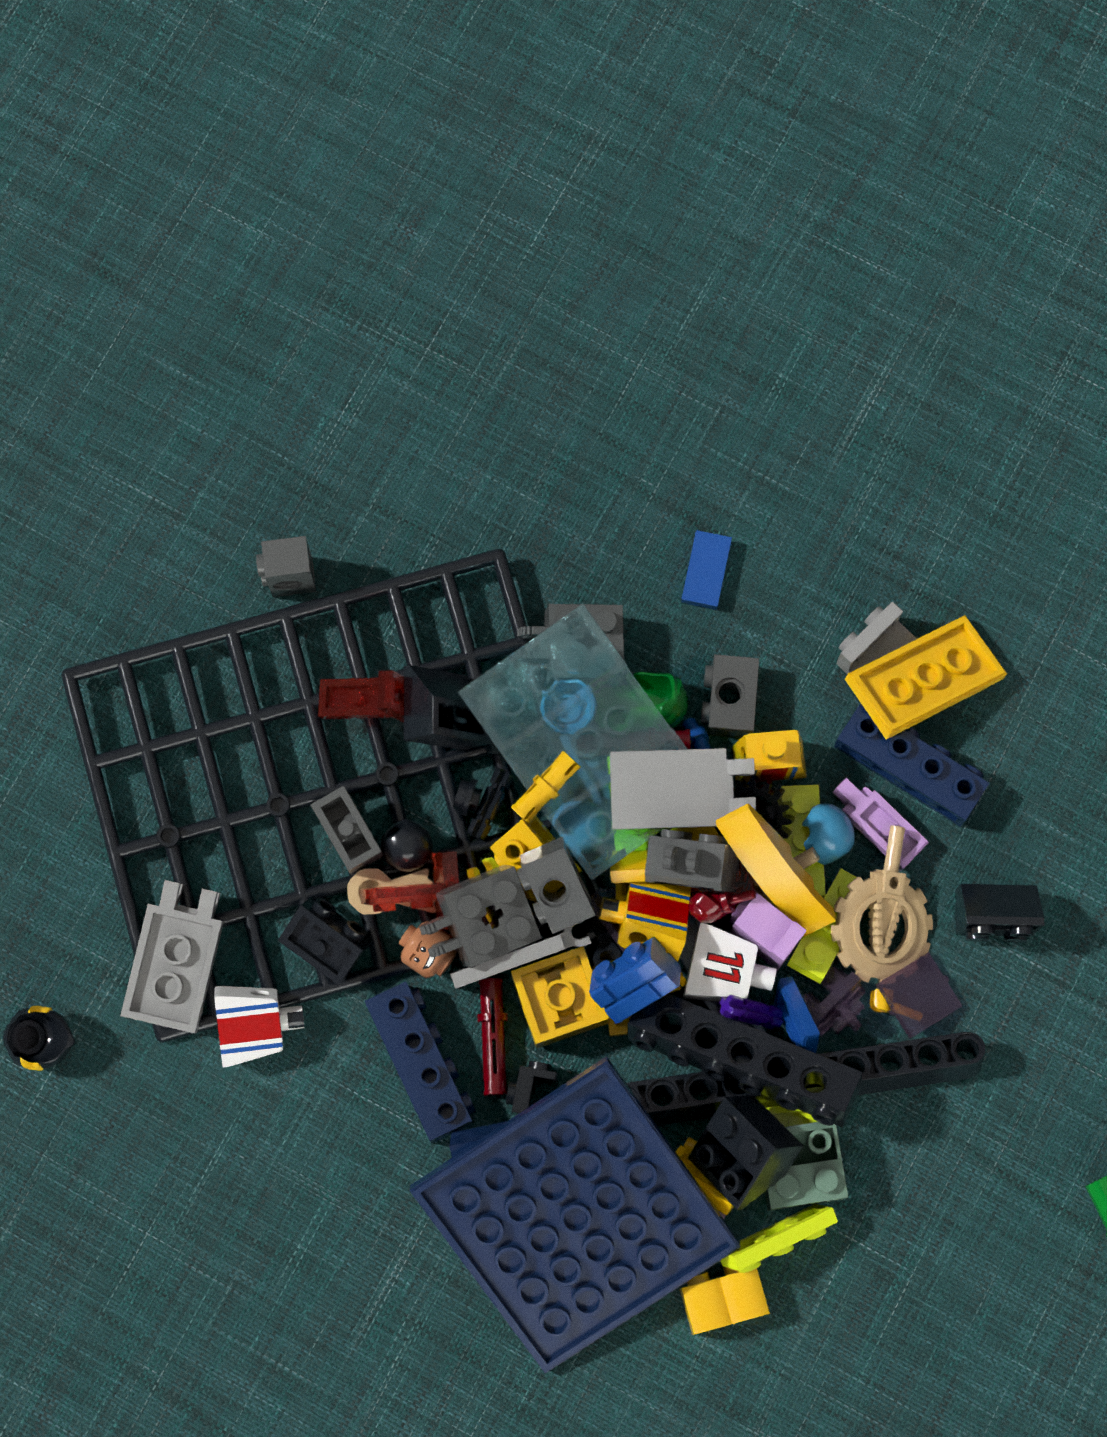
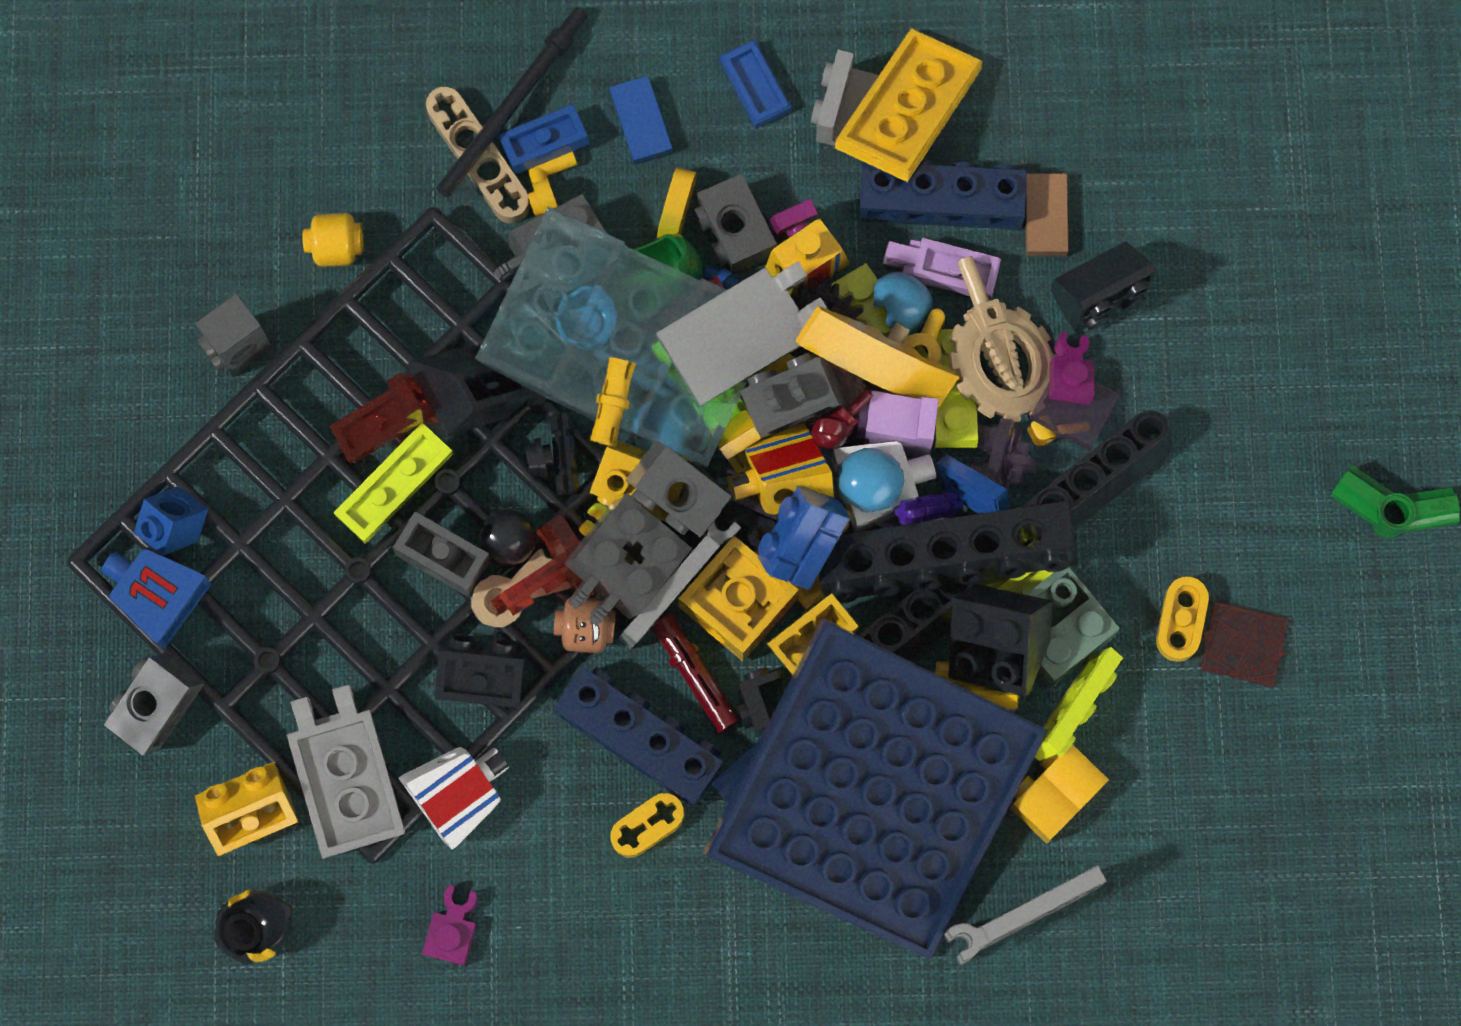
camera: 30 degrees left, 0 degrees up
(83, 819) = (174, 692): none -> brick
(85, 943) = (245, 808): none -> yellow brick
(111, 735) = (155, 592): none -> blue torso
(157, 684) = (170, 520): none -> blue brick
(185, 1132) = (451, 934): none -> magenta plate
(343, 752) = (393, 483): none -> neon yellow plate
(386, 1125) = (640, 817): none -> yellow beam
(410, 532) = (334, 239): none -> yellow head
(562, 526) = (491, 154): none -> tan beam
(579, 1058) = (794, 640): none -> yellow torso
(592, 590) = (543, 195): none -> yellow plate
(620, 543) = (544, 139): none -> blue plate
(639, 1383) = (1025, 914): none -> light grey tile
(675, 472) = (555, 44): none -> black bar
(695, 653) = (677, 202): none -> yellow beam
(714, 963) = (869, 479): none -> dark azure hair
(778, 718) = (793, 219): none -> magenta plate
(814, 591) = (755, 84): none -> blue tile
(831, 873) = (928, 335): none -> yellow plate
(905, 1217) = (1182, 620): none -> yellow plate
(930, 968) = (1069, 375): none -> magenta plate
(945, 1266) = (1243, 644): none -> clear red piece
(987, 826) = (1046, 215): none -> medium nougat tile

